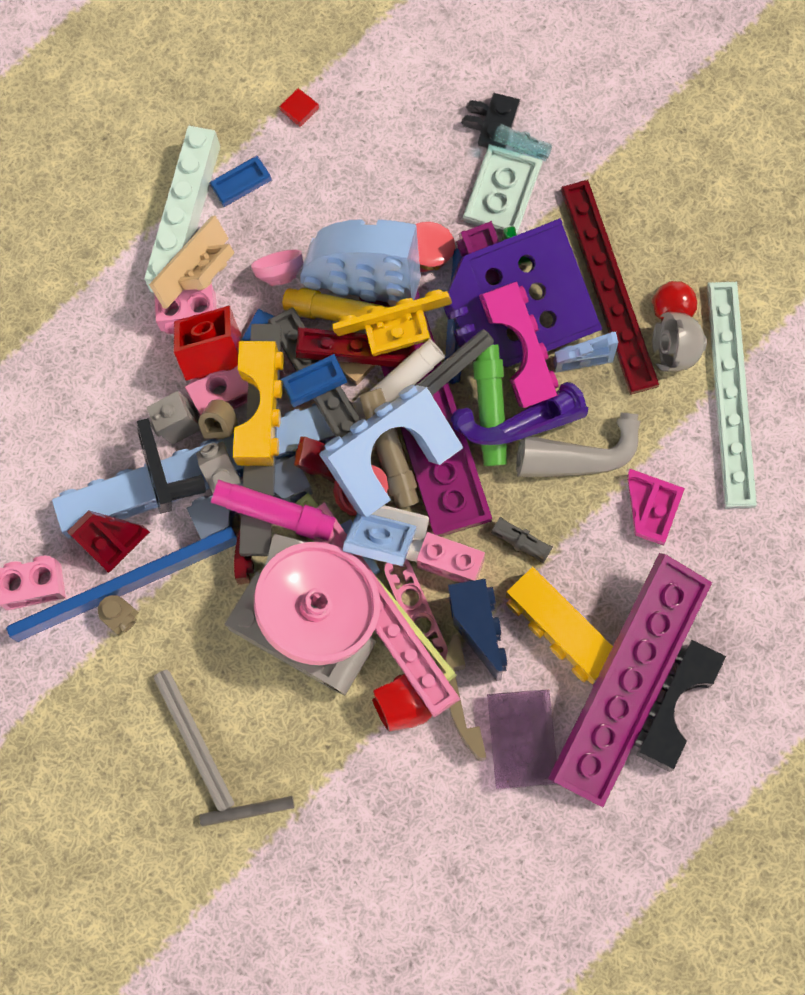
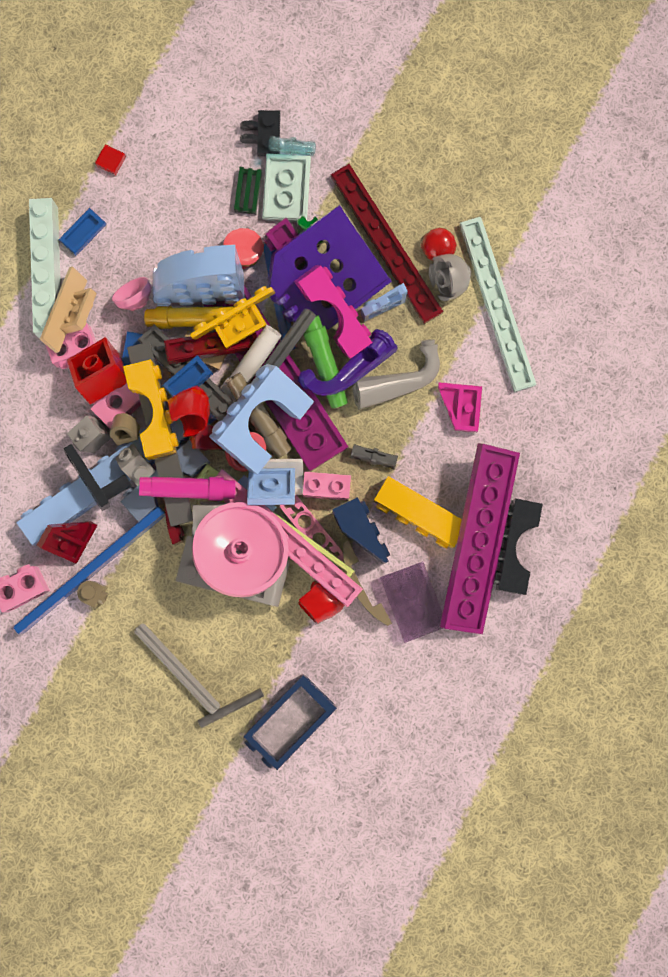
camera: 25 degrees left, 10 degrees up
(308, 414) = (192, 408): none -> red piece
(316, 850) = (289, 722): none -> window
(462, 161) = (249, 172): none -> dark green tile

